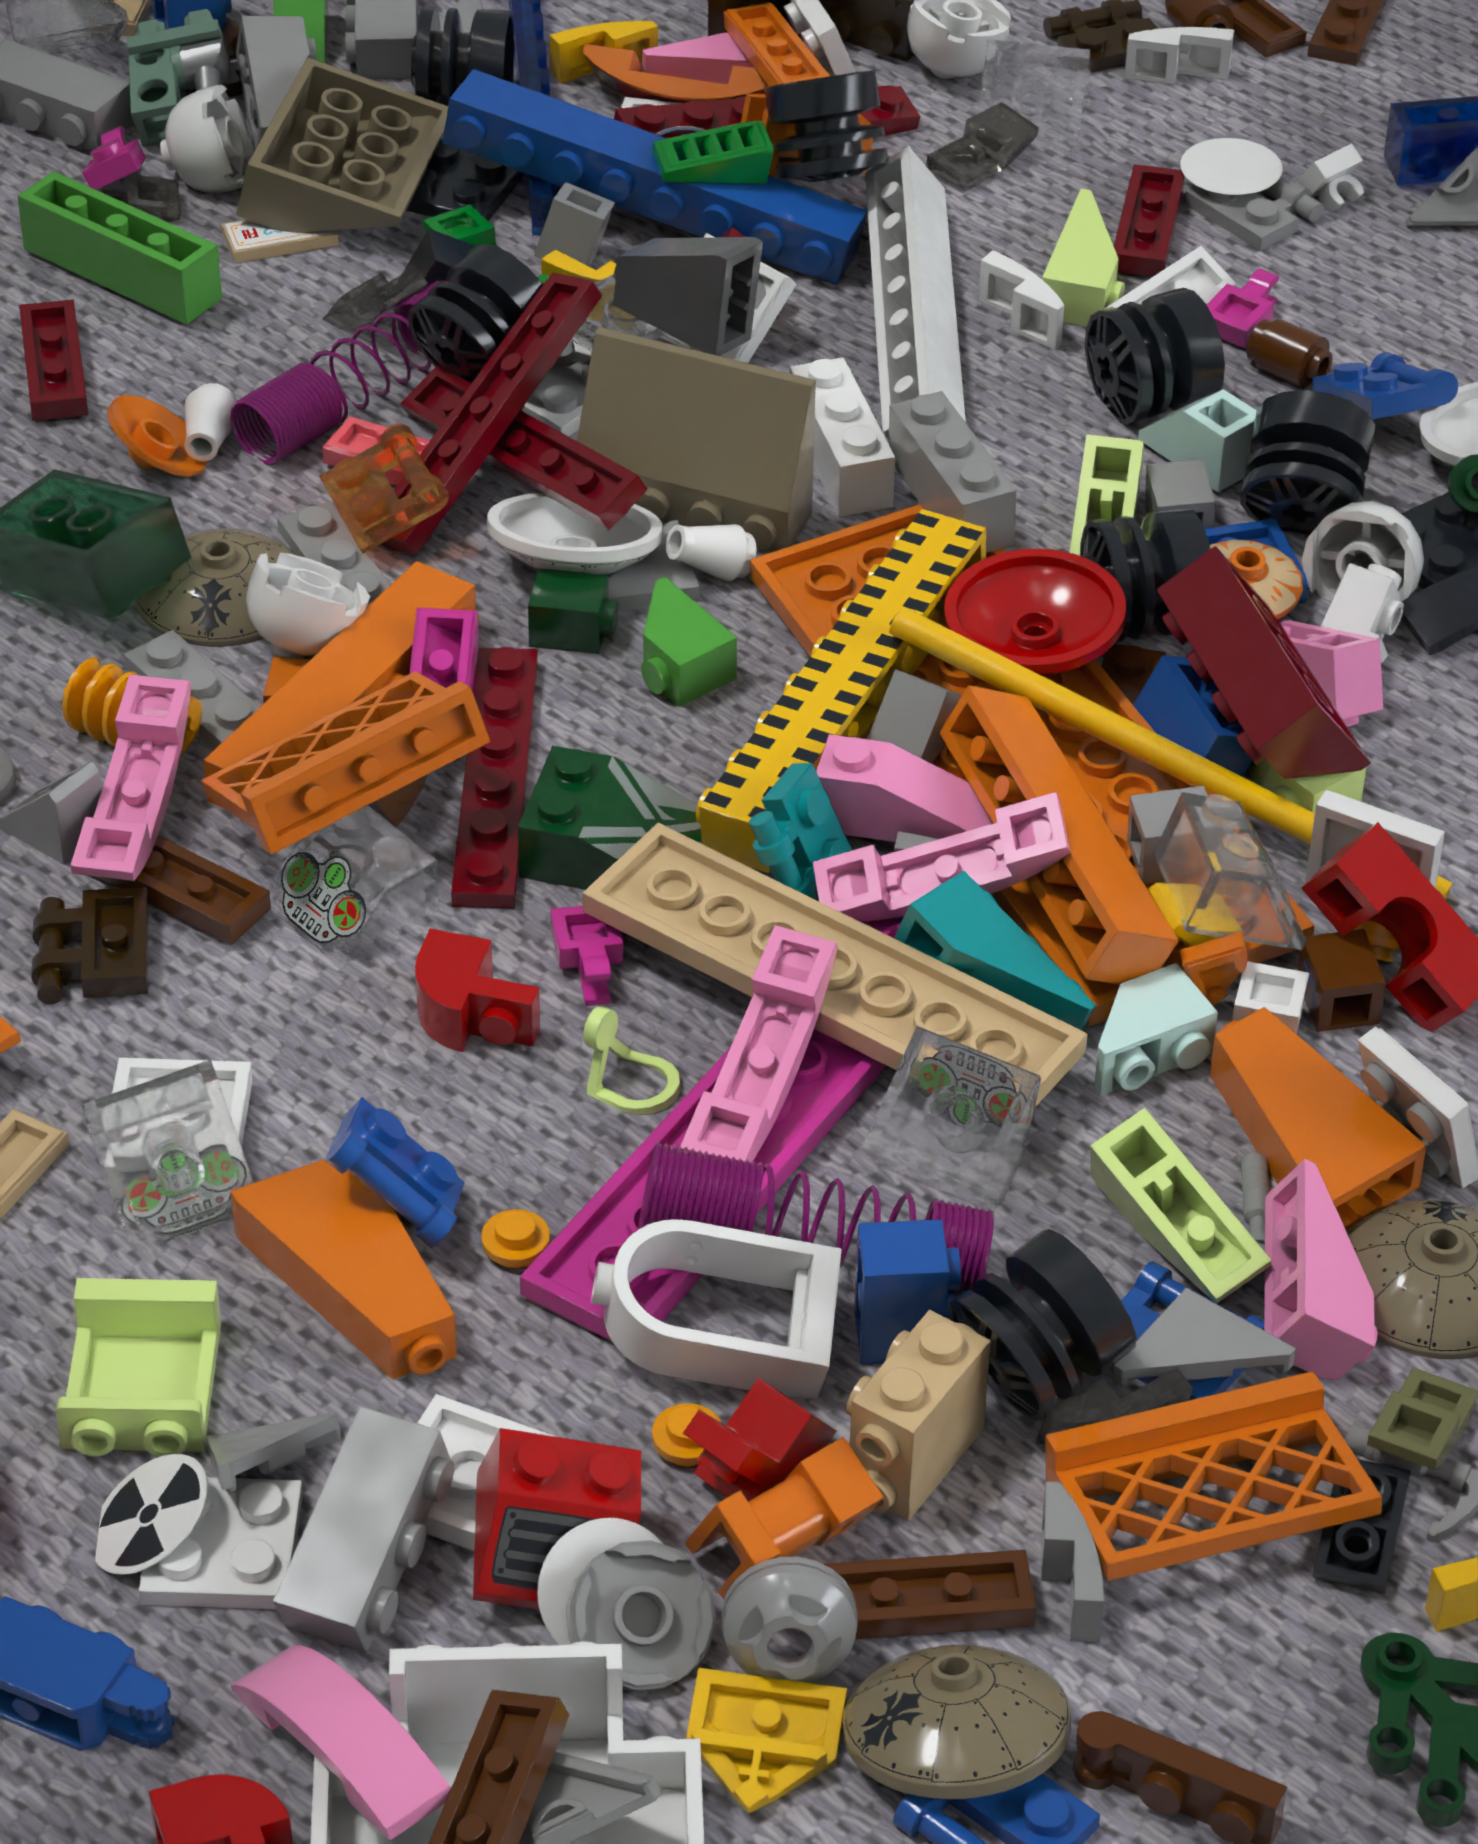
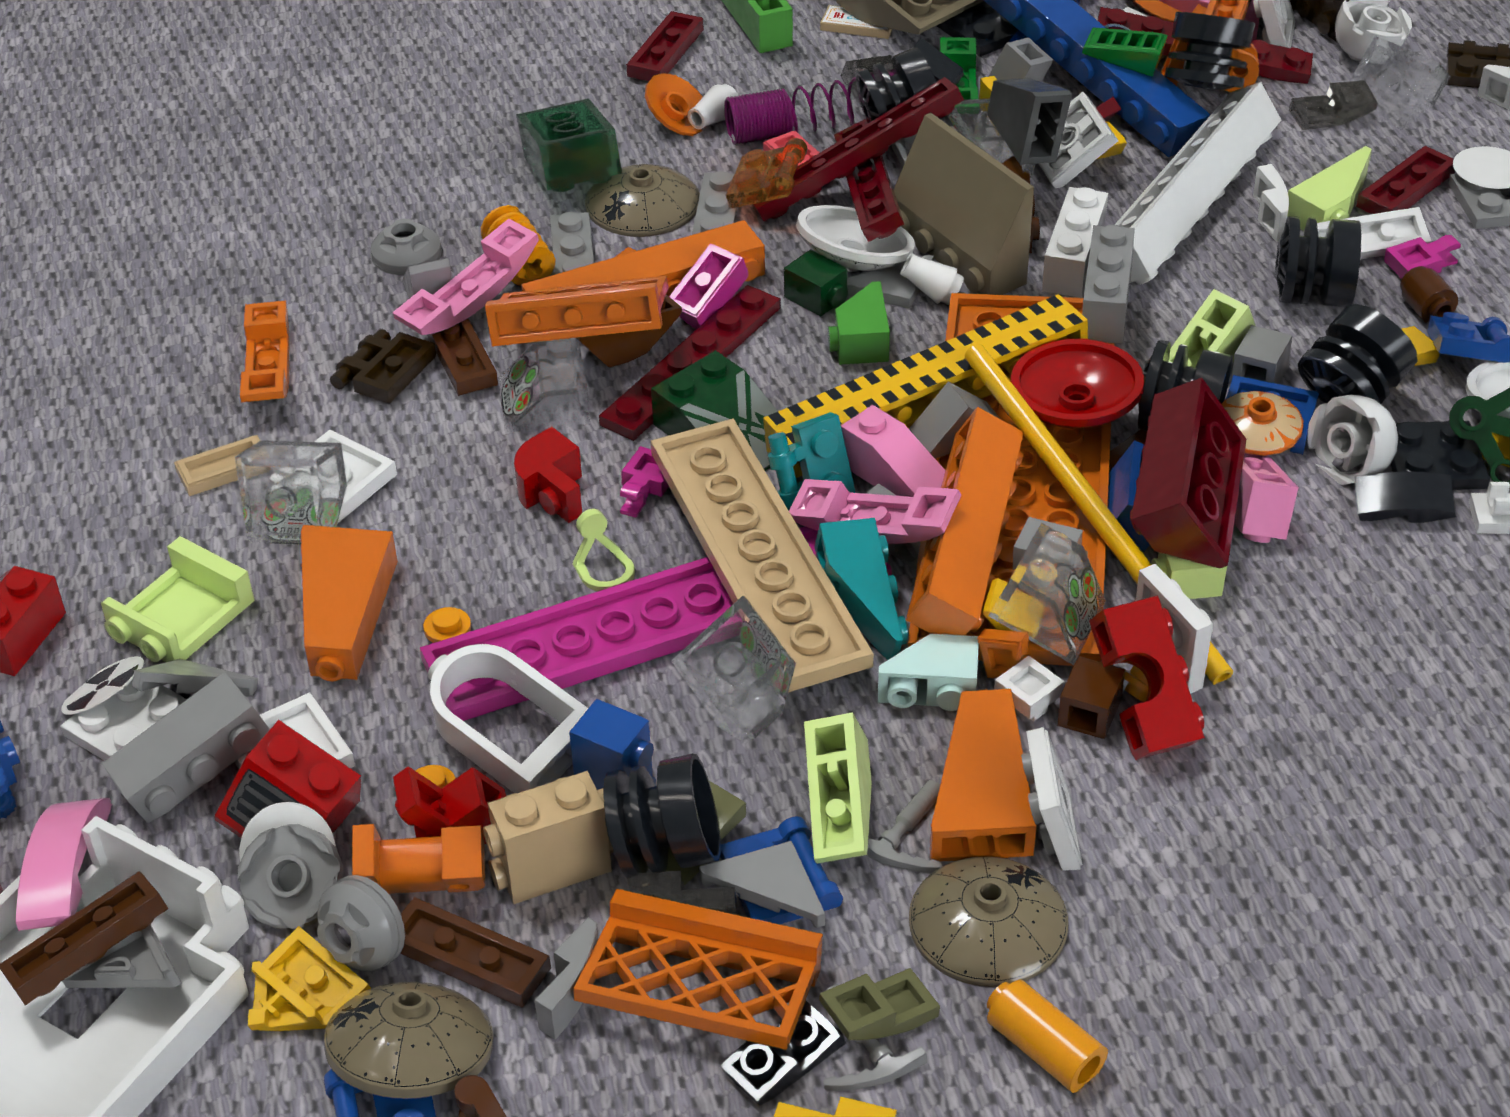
camera: 35 degrees right, 0 degrees up
(300, 604) = (658, 216): white cylinder -> none
(397, 1169) = (398, 553): blue plate -> none
(728, 1193) = (562, 654): magenta piece -> none
(767, 1047) = (667, 583): bright pink slope -> none
(1210, 430) = (1309, 319): light aqua slope -> none
(1315, 1280) = (884, 884): bright pink slope -> none
(1367, 603) = (1322, 470): white brick -> none

